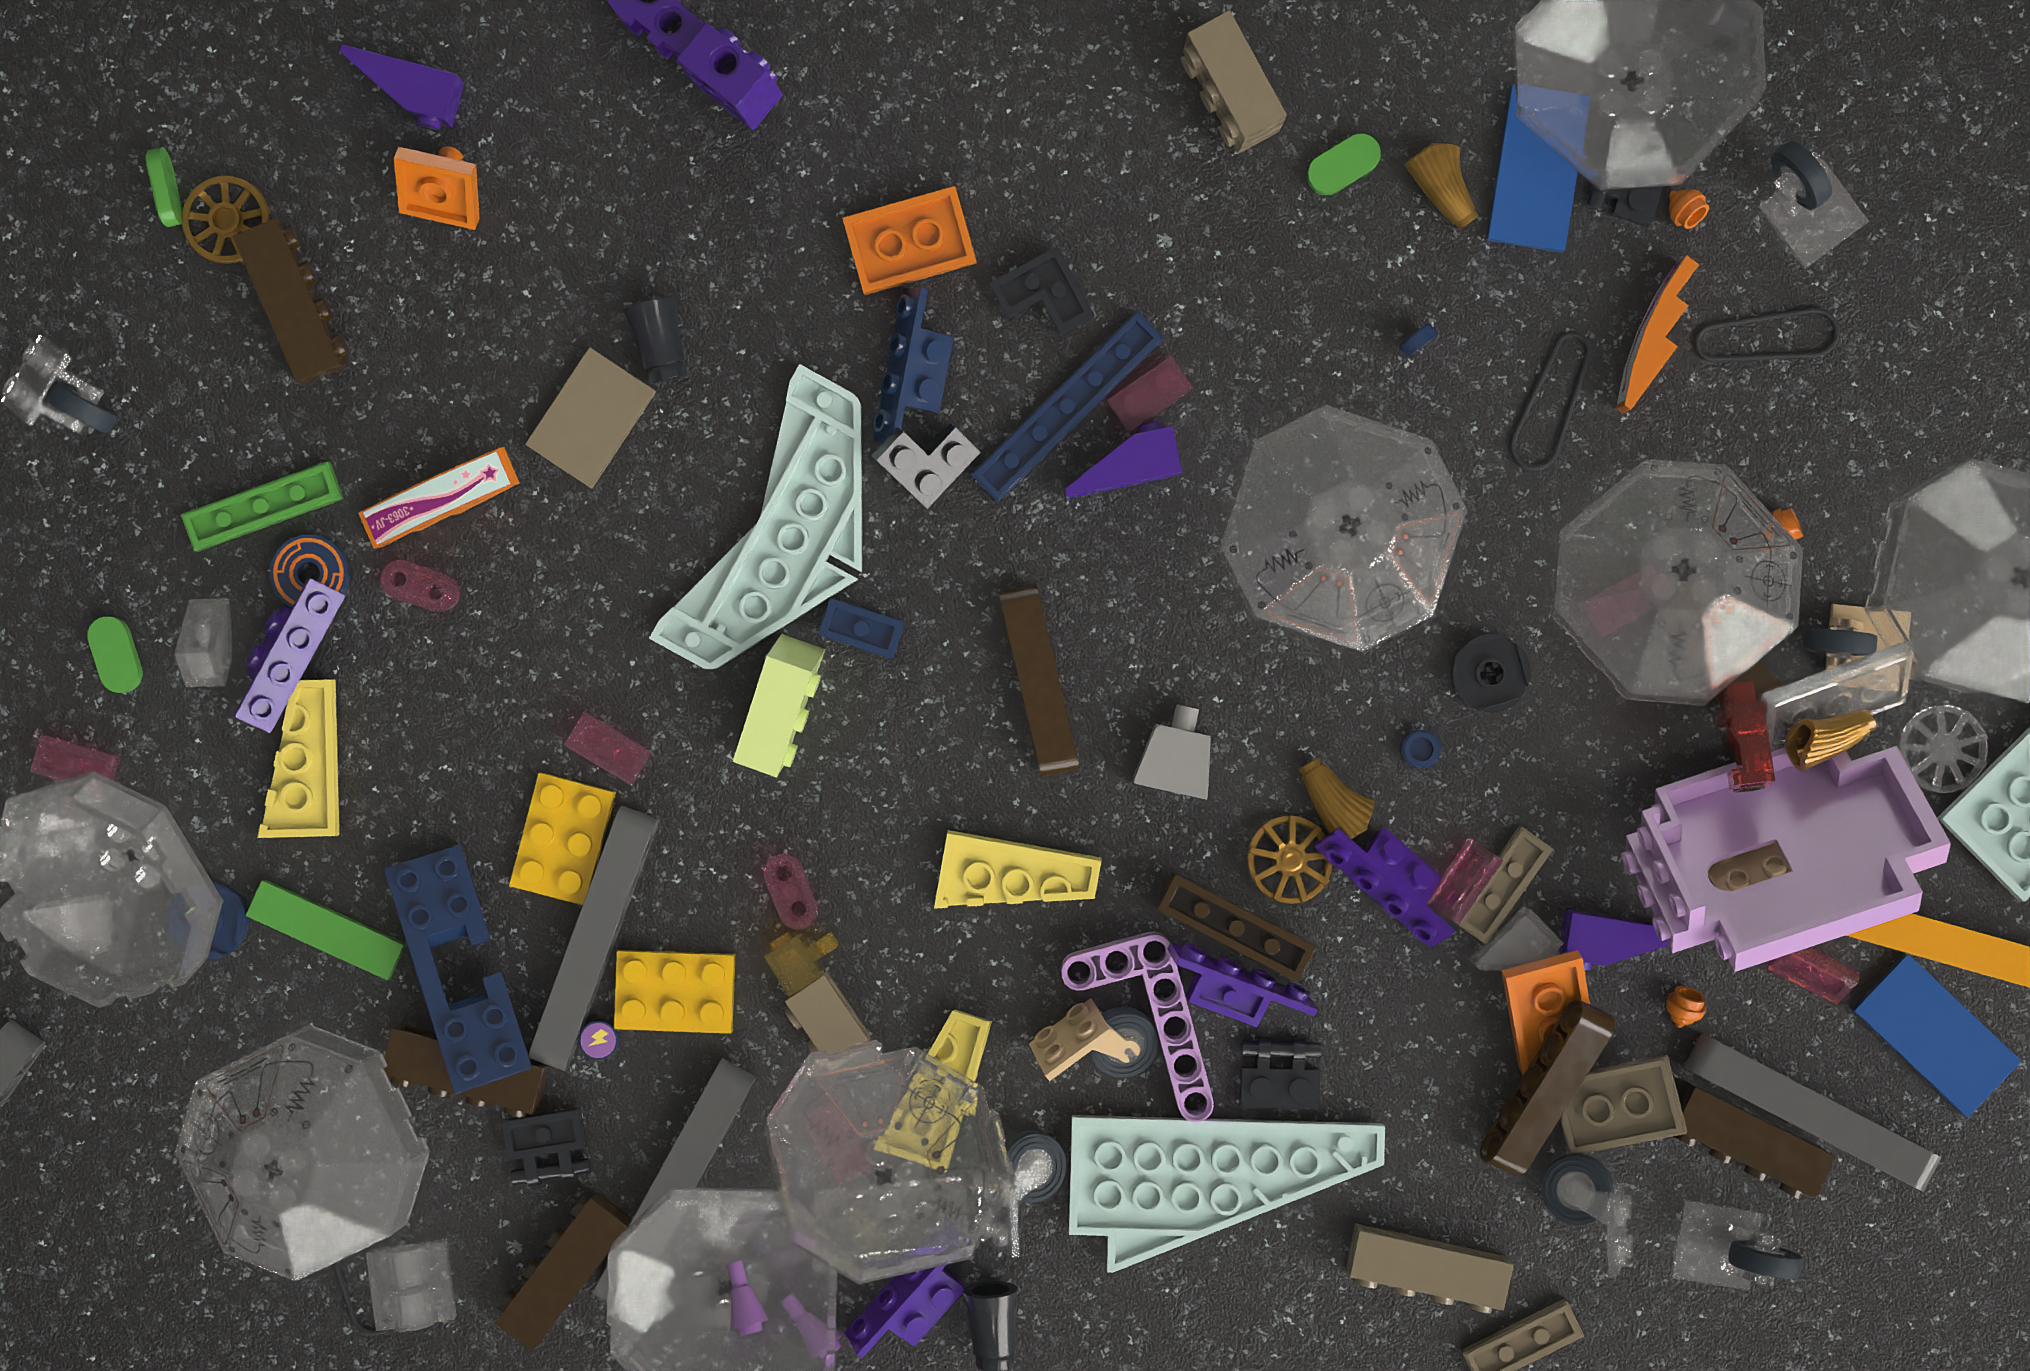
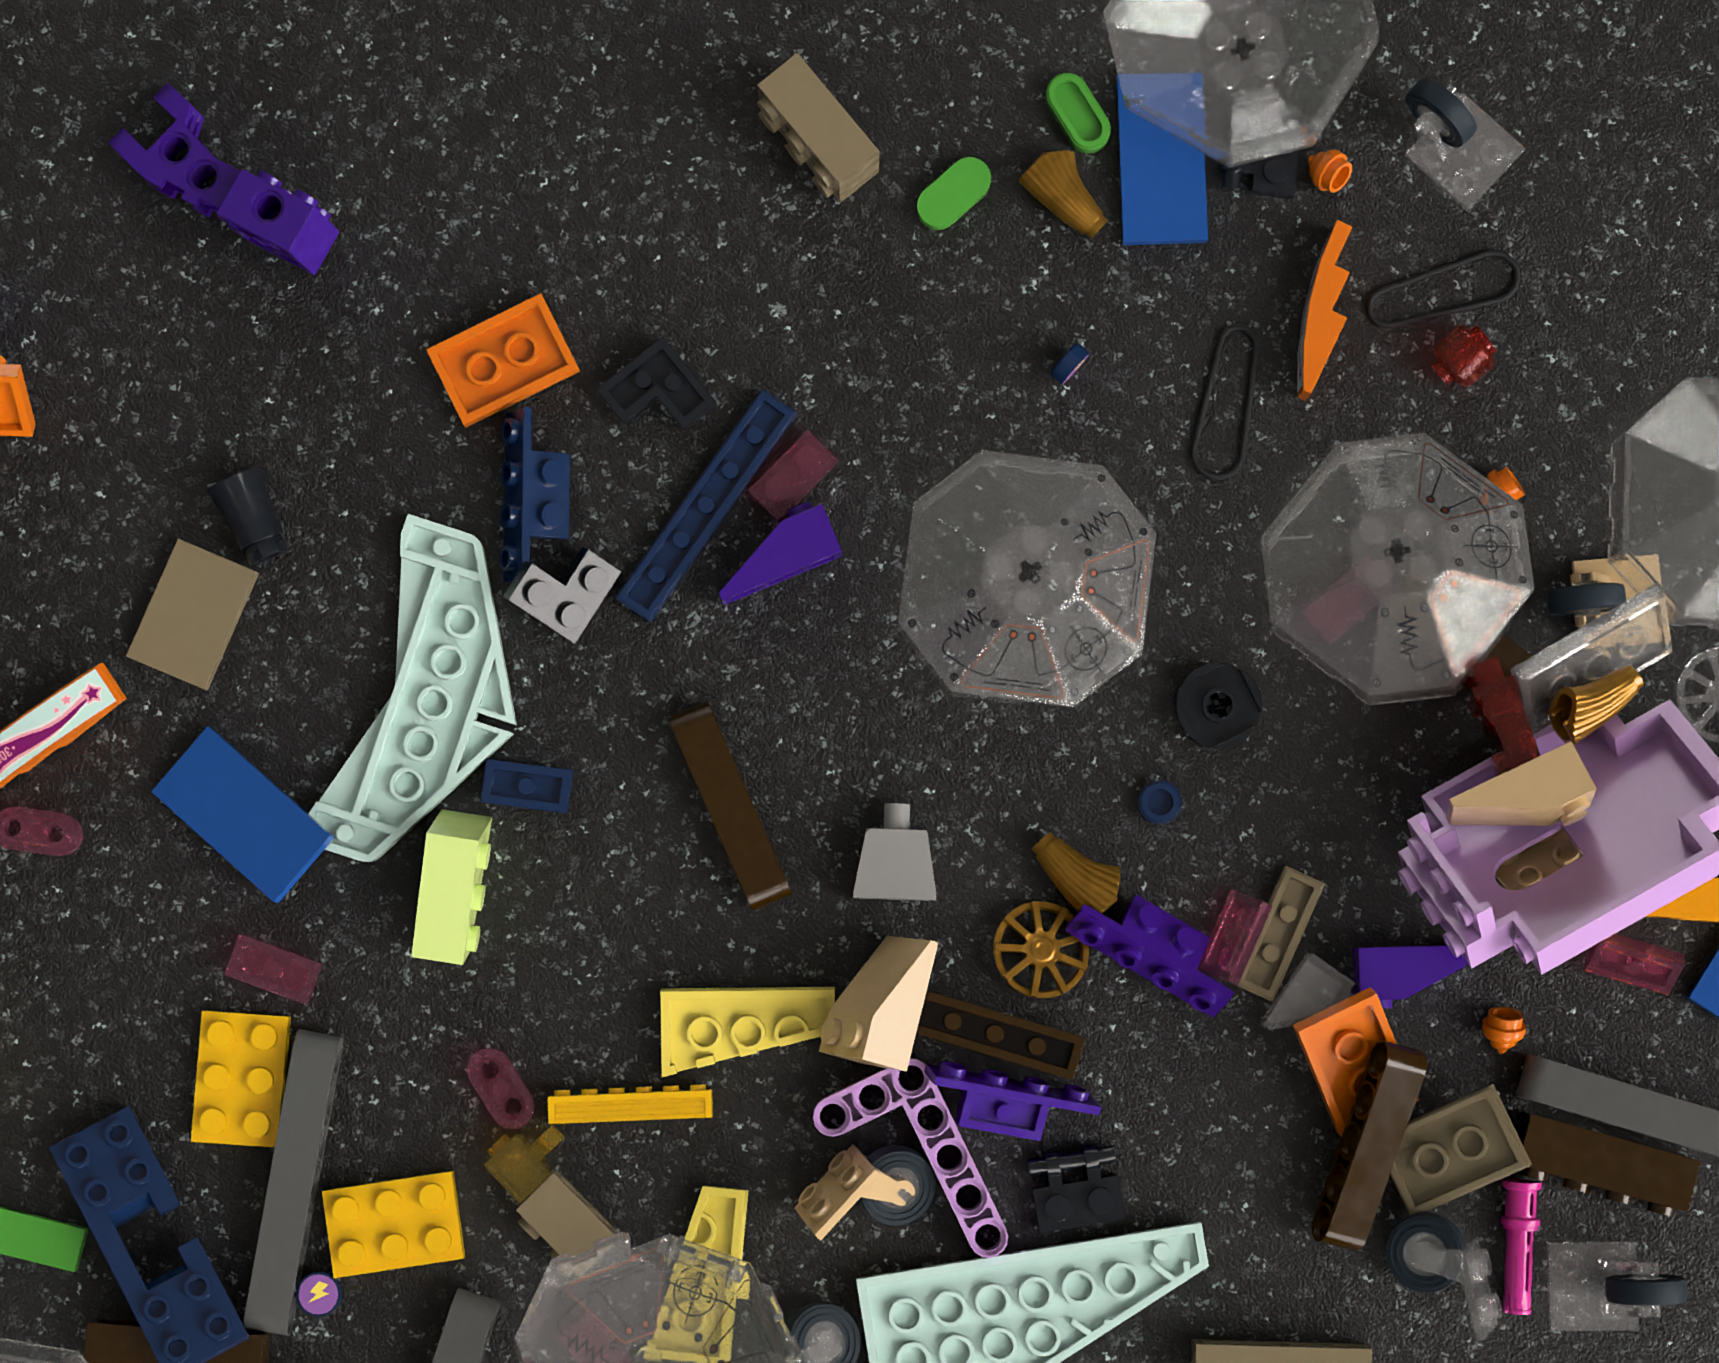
camera: 10 degrees left, 5 degrees down
(605, 606) = (242, 814): none -> blue tile
(901, 928) = (630, 1106): none -> yellow piece
(1142, 883) = (881, 1006): none -> tan slope
(1470, 111) = (1078, 113): none -> bright green tile
(1664, 1180) = (1520, 1225): none -> dark pink pin
(1763, 810) = (1532, 794): none -> tan slope
(1774, 400) = (1464, 356): none -> clear red head

